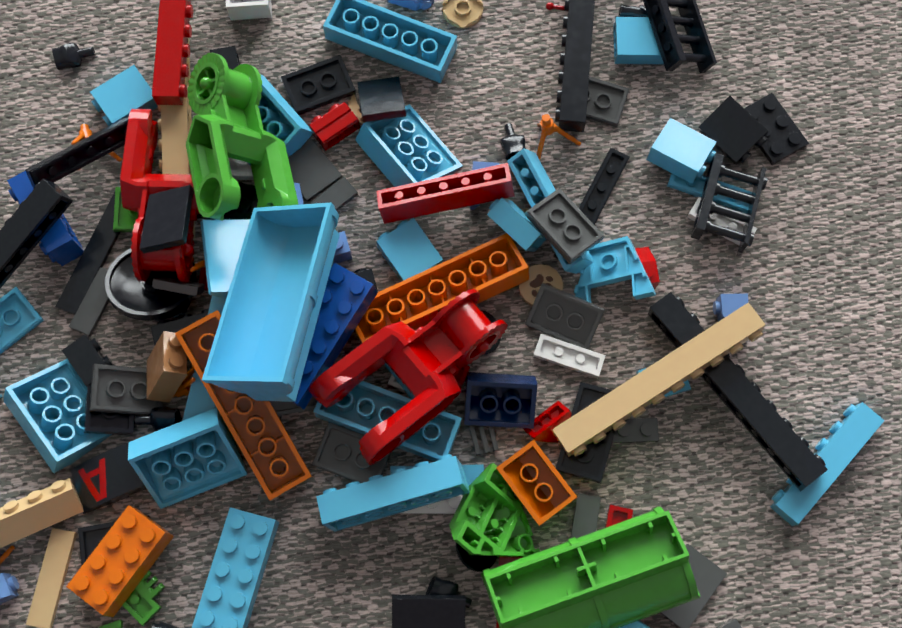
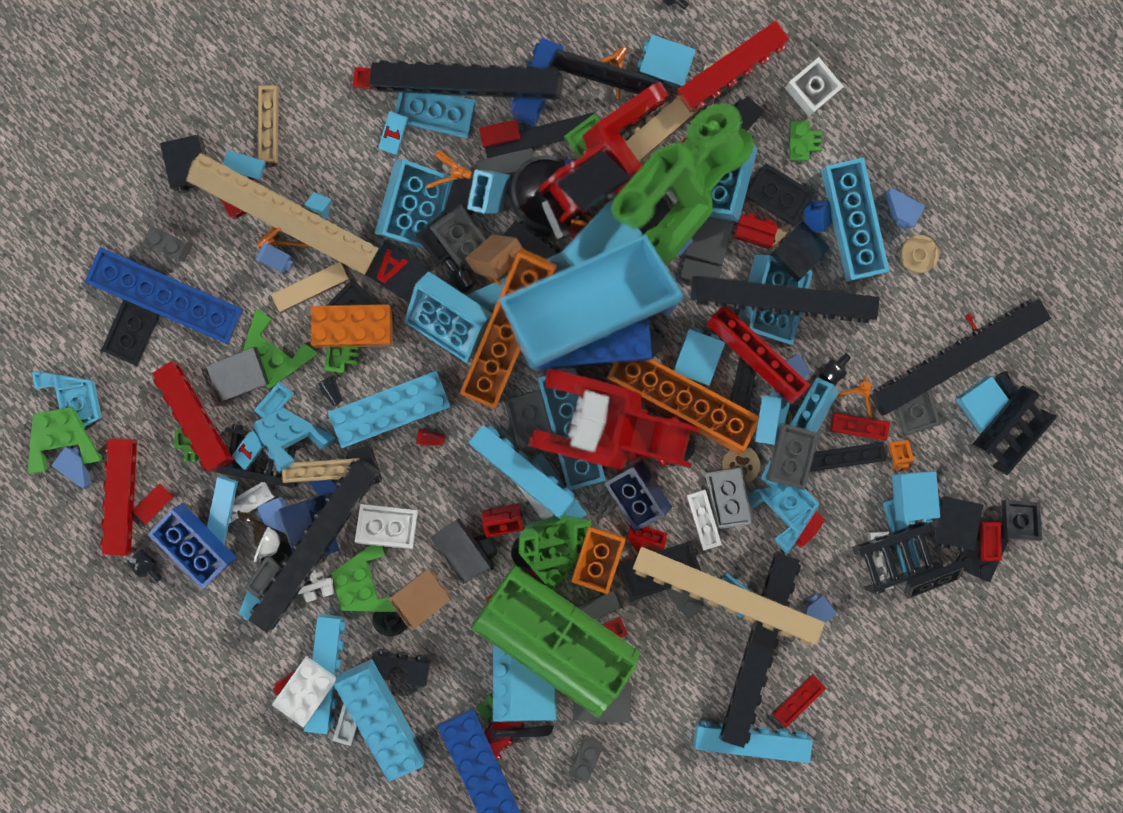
camera: 55 degrees right, 15 degrees up
(60, 346) = (456, 170): none -> orange plant
(62, 285) = (499, 133): none -> red tile
(102, 329) = (488, 191): none -> medium azure brick
(288, 36) = (802, 141): none -> bright green hinge
(291, 567) = (429, 438): none -> red cone
(362, 65) = (818, 215): none -> blue panel
(387, 381) = (588, 420): none -> white brick
(409, 138) = (783, 298): none -> black brick
(428, 551) = (503, 520): none -> red brick
(462, 228) = (743, 384): none -> black tile
(581, 158) = (859, 426): none -> red tile
(634, 139) = (901, 455): none -> orange bracket
(767, 78) = (1021, 520): none -> black plate
(770, 115) = (990, 541): none -> red tile
(772, 185) = (933, 579): none -> black tile
(813, 390) = (799, 701): none -> red tile

